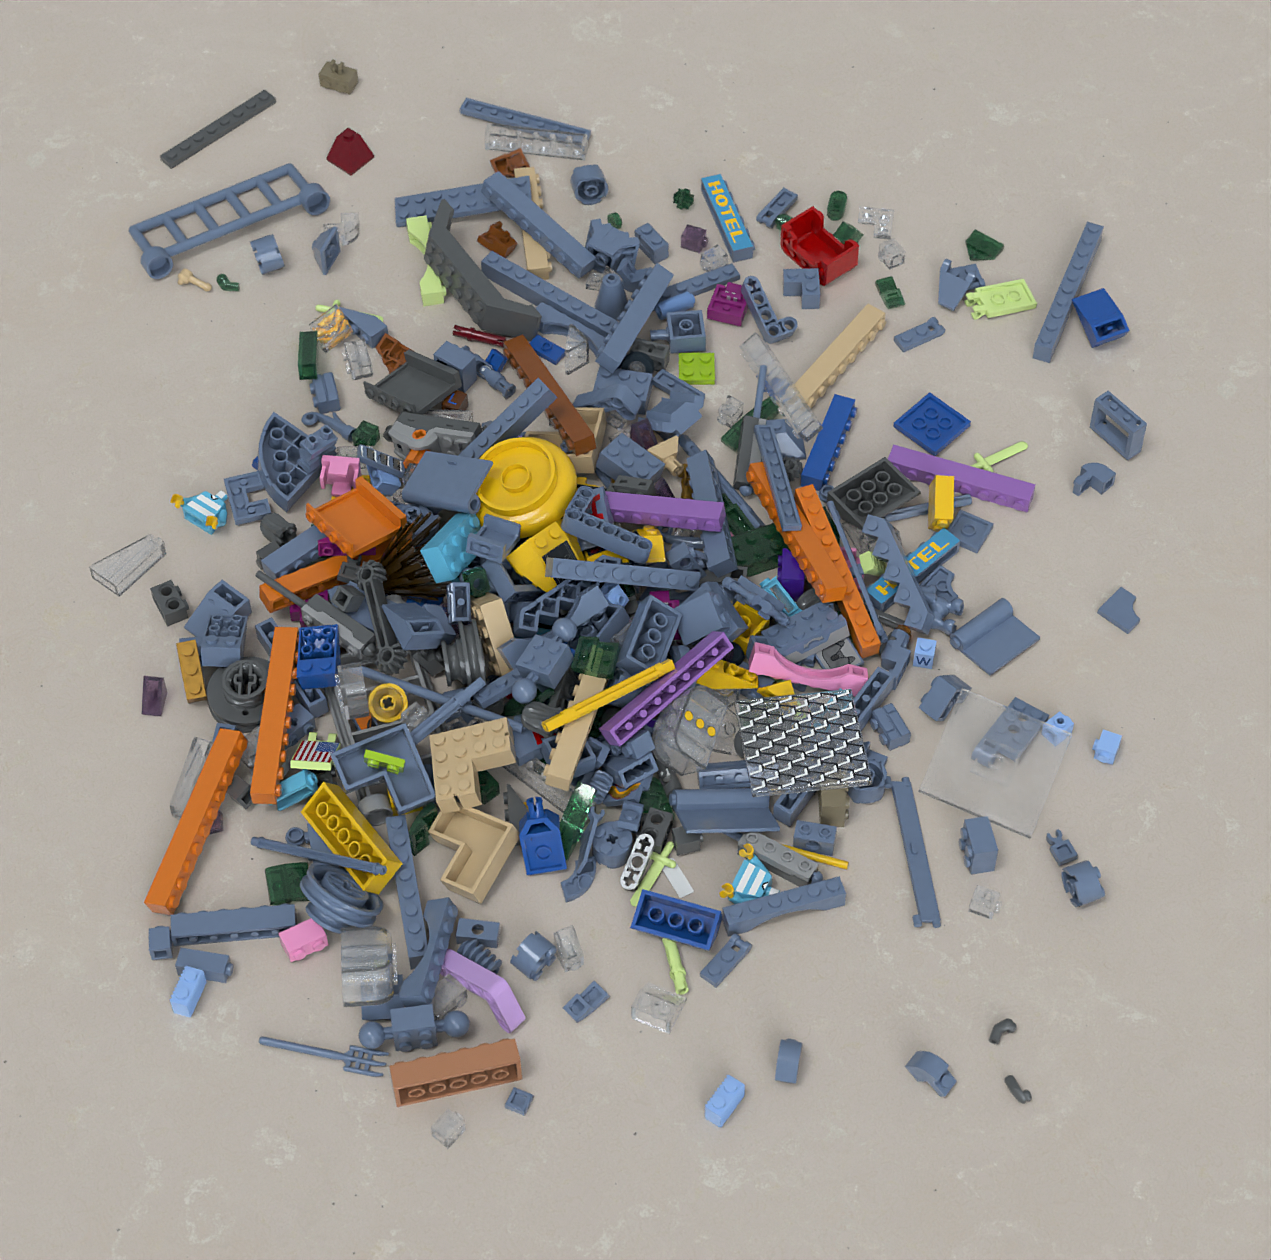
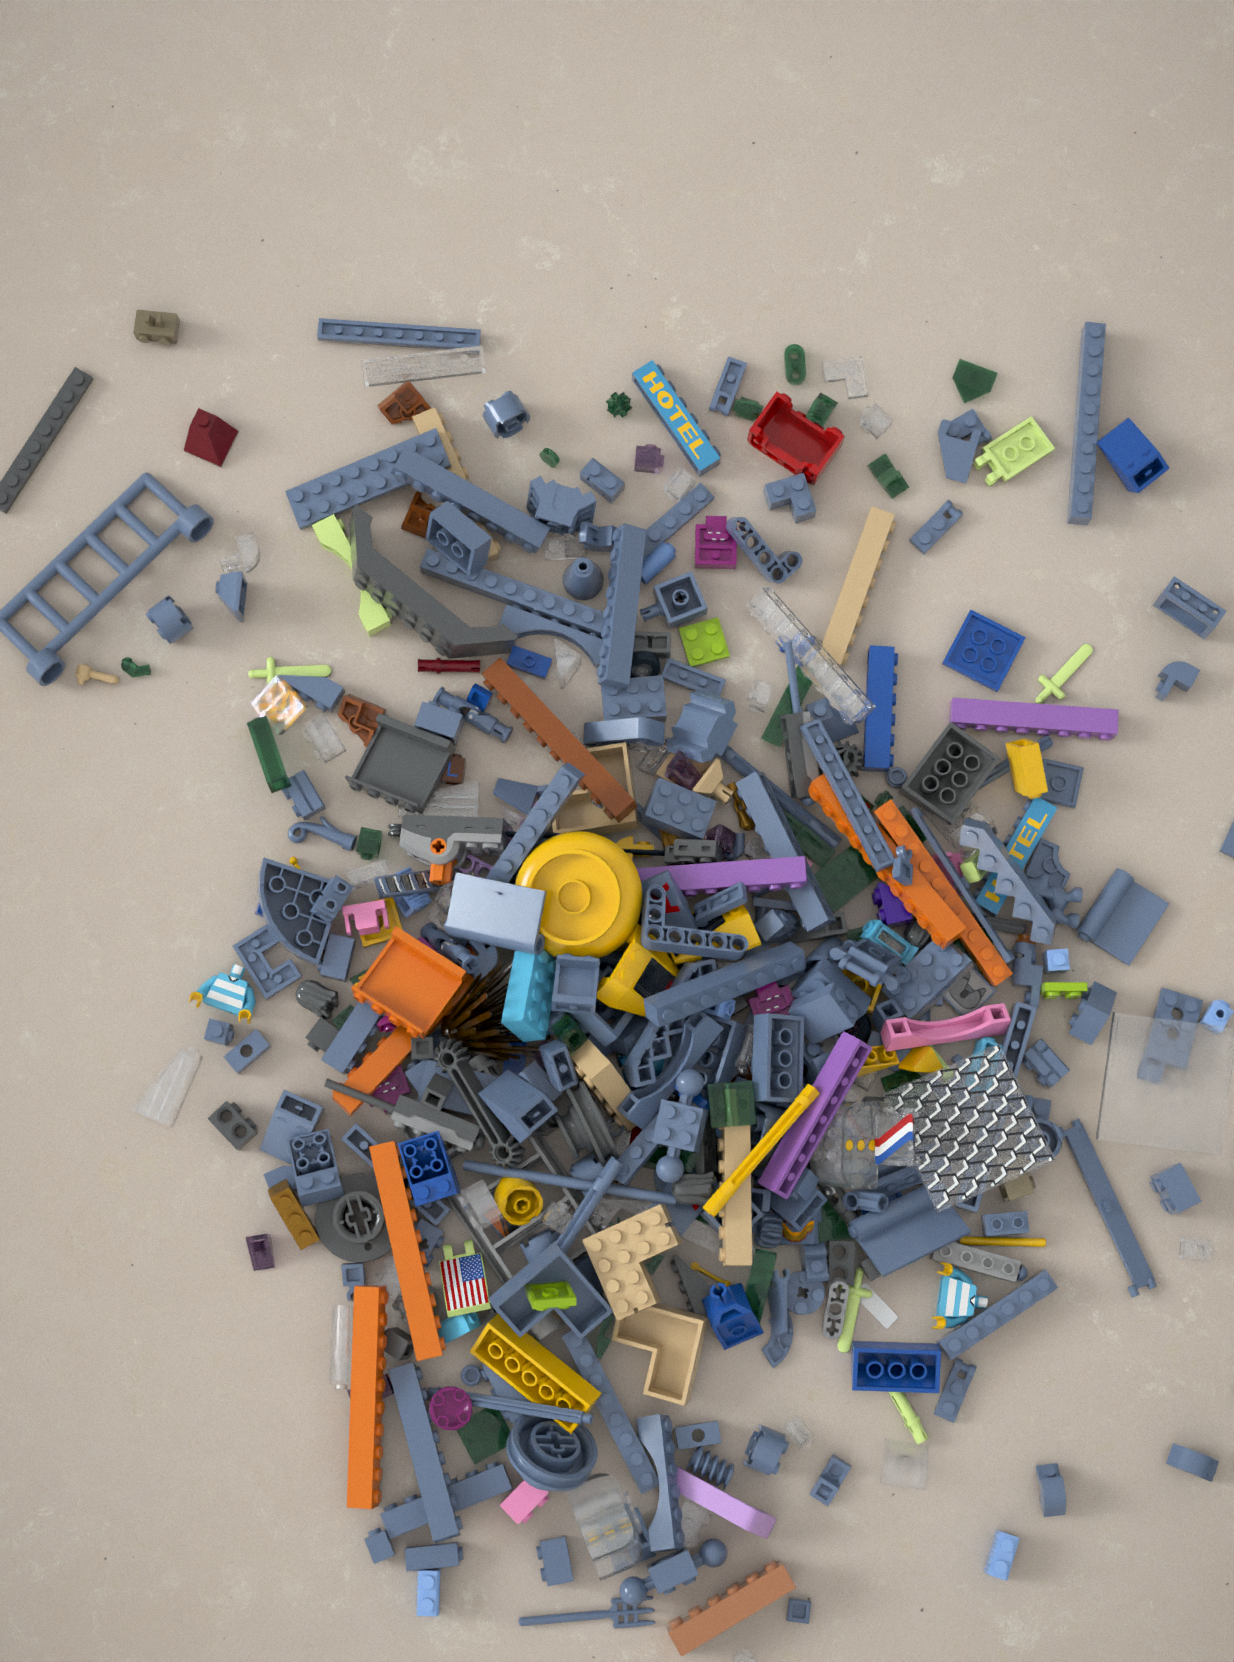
camera: 20 degrees left, 25 degrees up
(186, 534) = (219, 1032): none -> sand blue brick
(196, 561) = (258, 1045): none -> sand blue piece
(229, 878) = (424, 1452): none -> sand blue brick
(266, 846) = (450, 1408): none -> magenta dish
(297, 510) = (337, 957): none -> sand blue brick
(312, 998) = (556, 1561): none -> sand blue brick
(518, 243) = (458, 538): none -> sand blue brick
(639, 525) = (720, 904): none -> sand blue plate
(692, 779) = (865, 1200): none -> sand blue piece
(732, 727) = (896, 1137): none -> panel
(804, 529) = (902, 868): none -> sand blue plate
(921, 669) = (1070, 990): none -> lime plate

